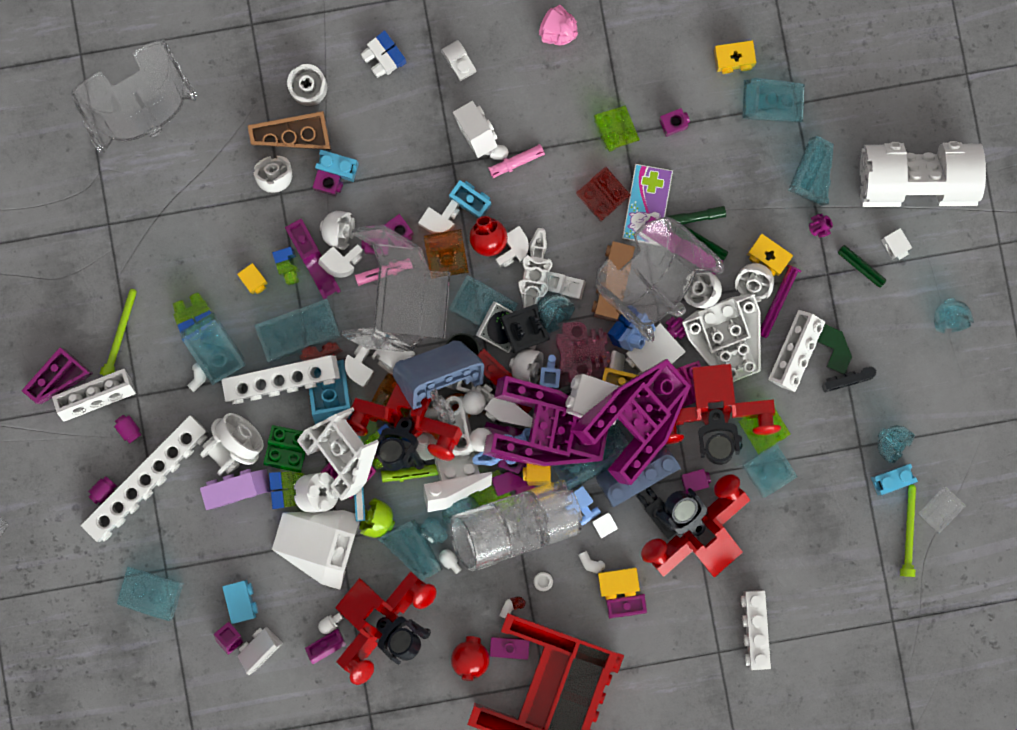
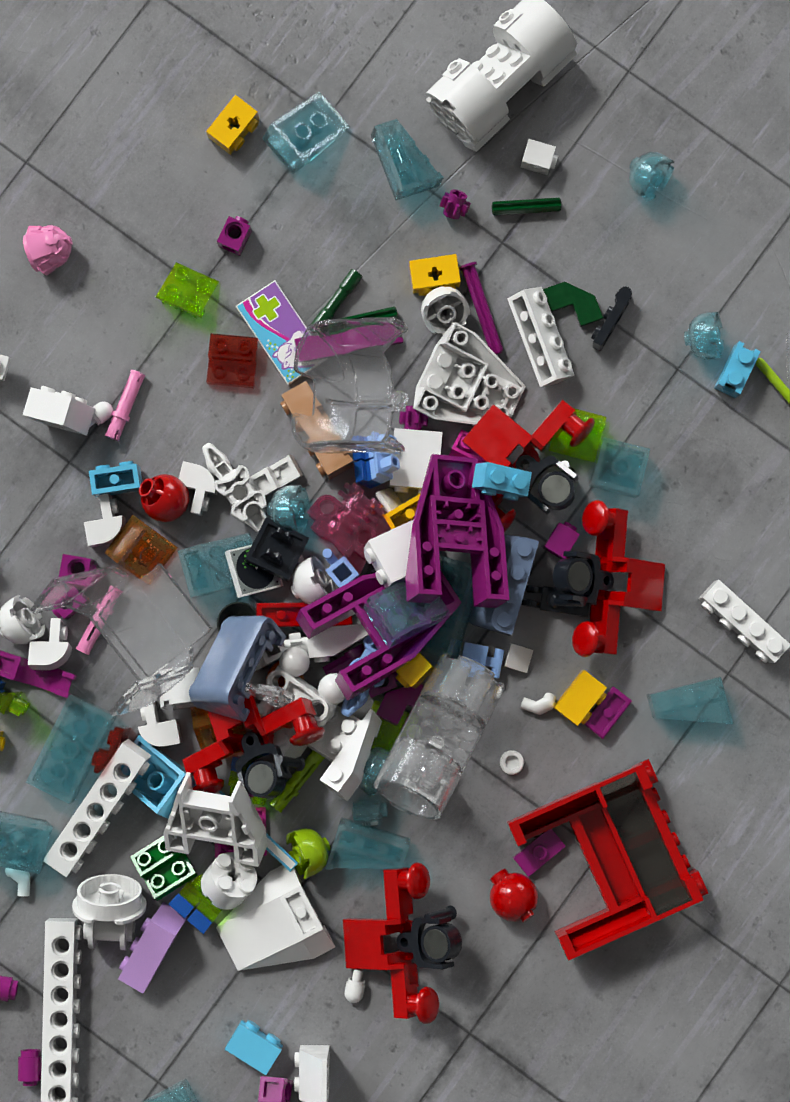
camera: 45 degrees left, 0 degrees up
(325, 646) = (371, 1012): magenta plate -> none
(449, 560) = (409, 825): white cylinder -> none
(512, 604) = (503, 810): arm -> none
(557, 437) = (399, 619): none -> clear light blue slope
(681, 647) = (692, 702): none -> clear light blue wedge
(693, 412) = (501, 480): none -> medium azure brick
(704, 290) = (407, 361): white cylinder -> none

